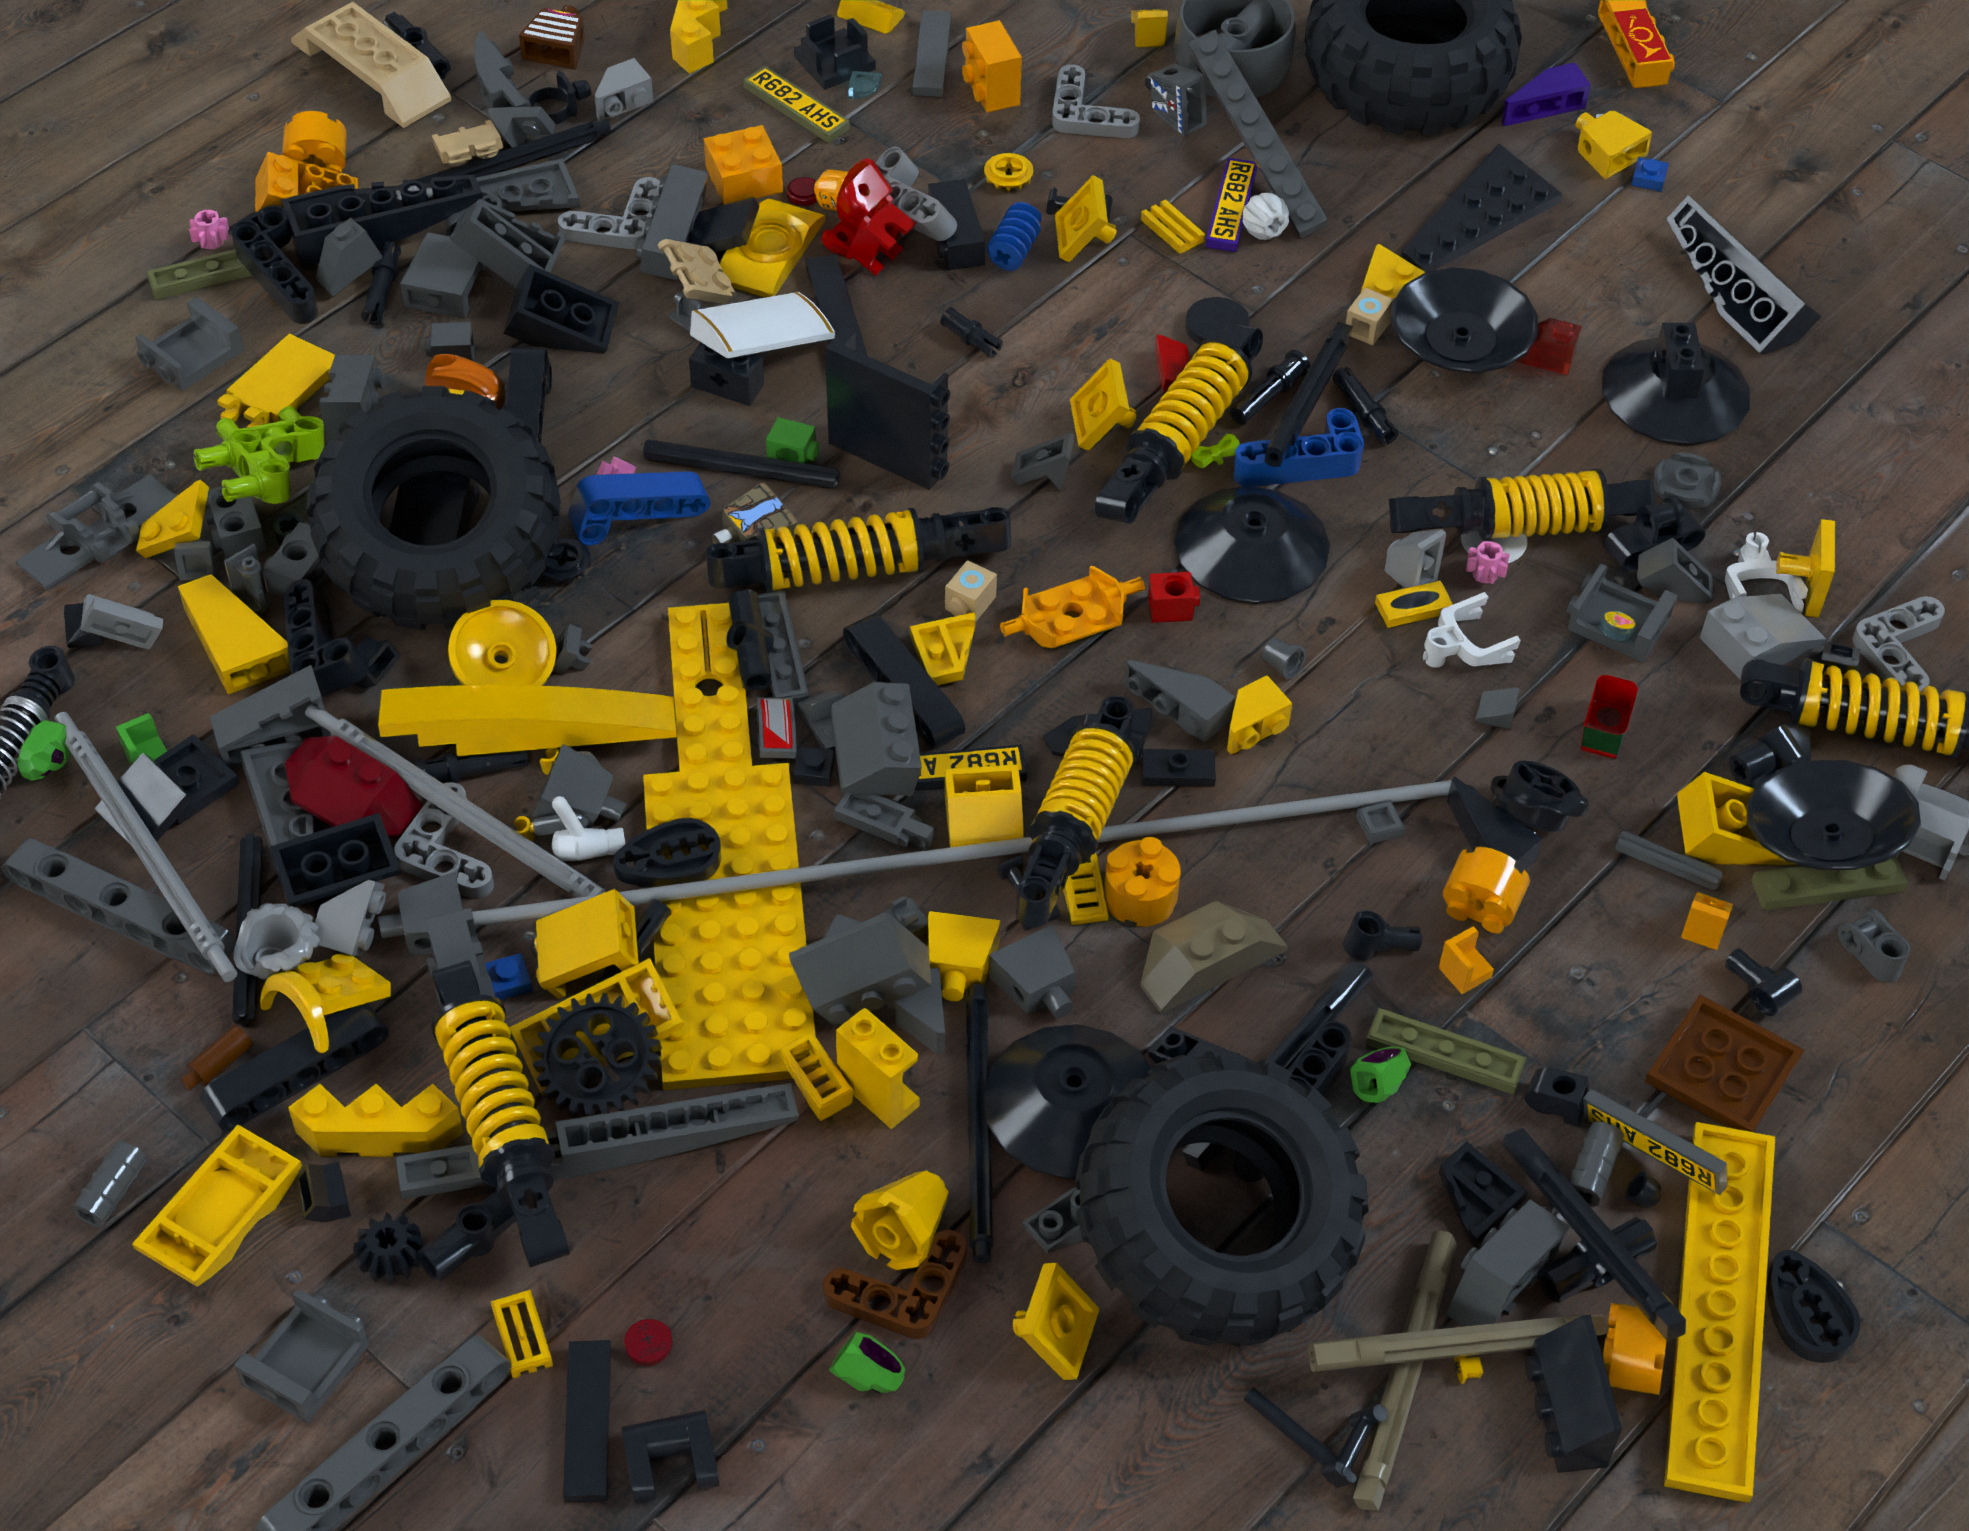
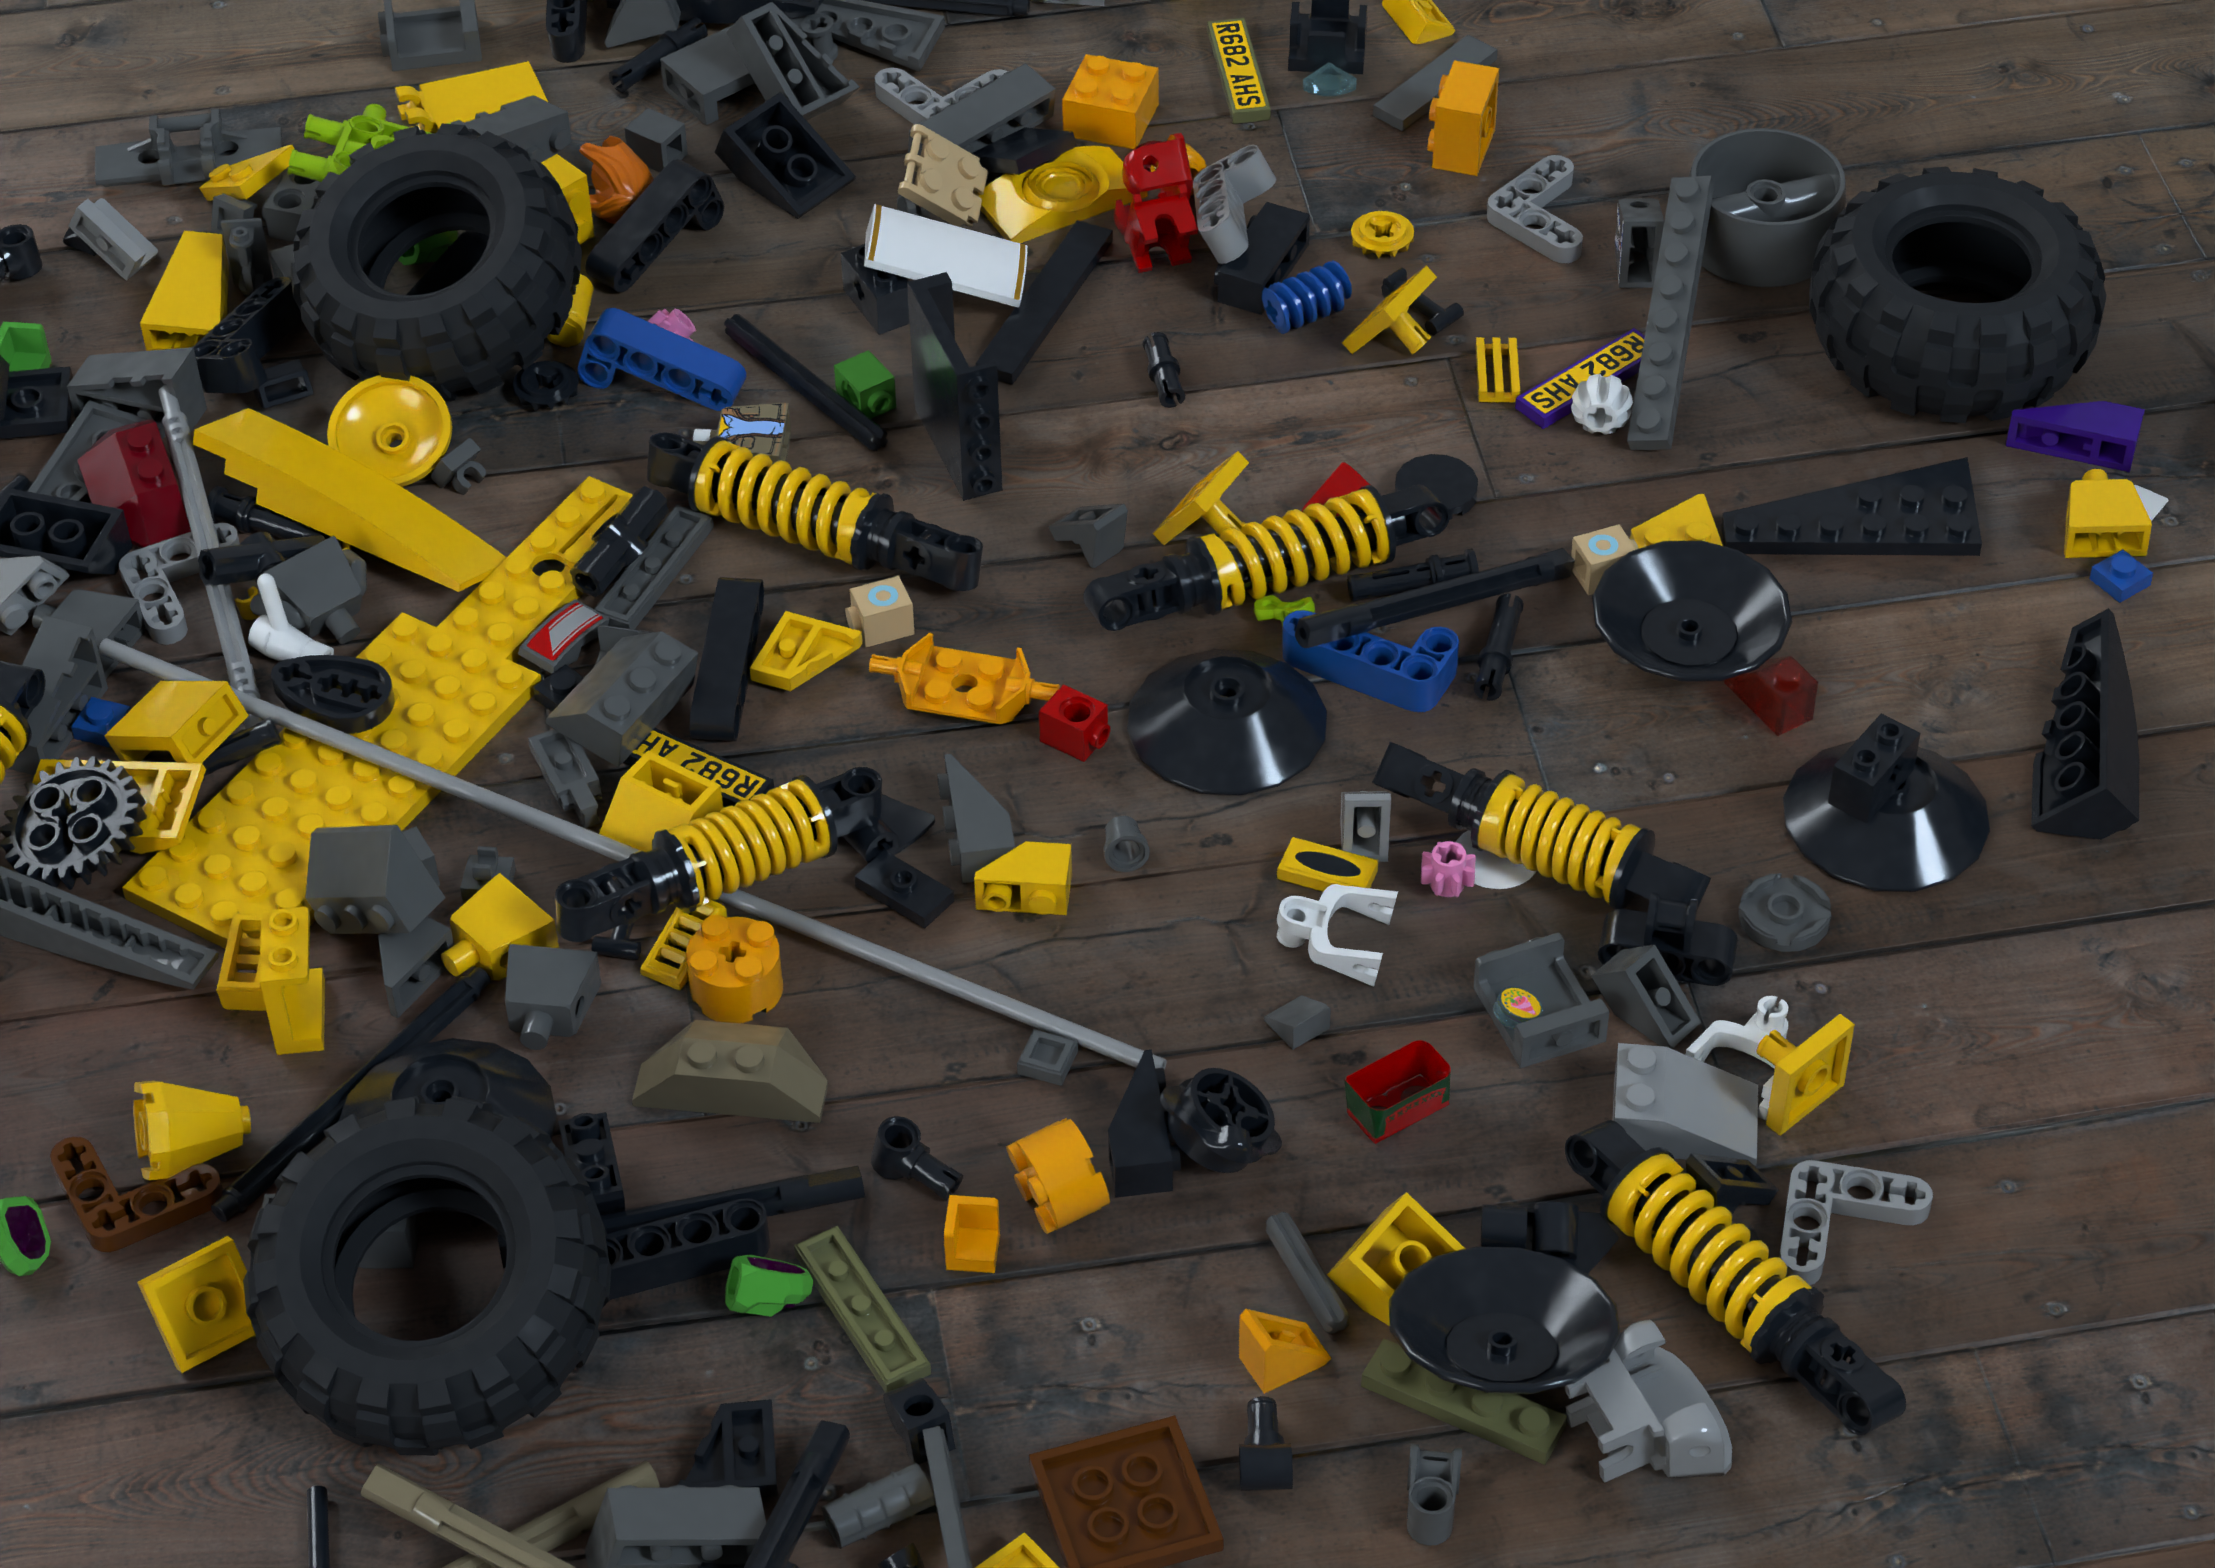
camera: 40 degrees right, 5 degrees down
(515, 792) = (249, 558): none -> black piece
(1150, 27) = (1683, 150): yellow slope -> none

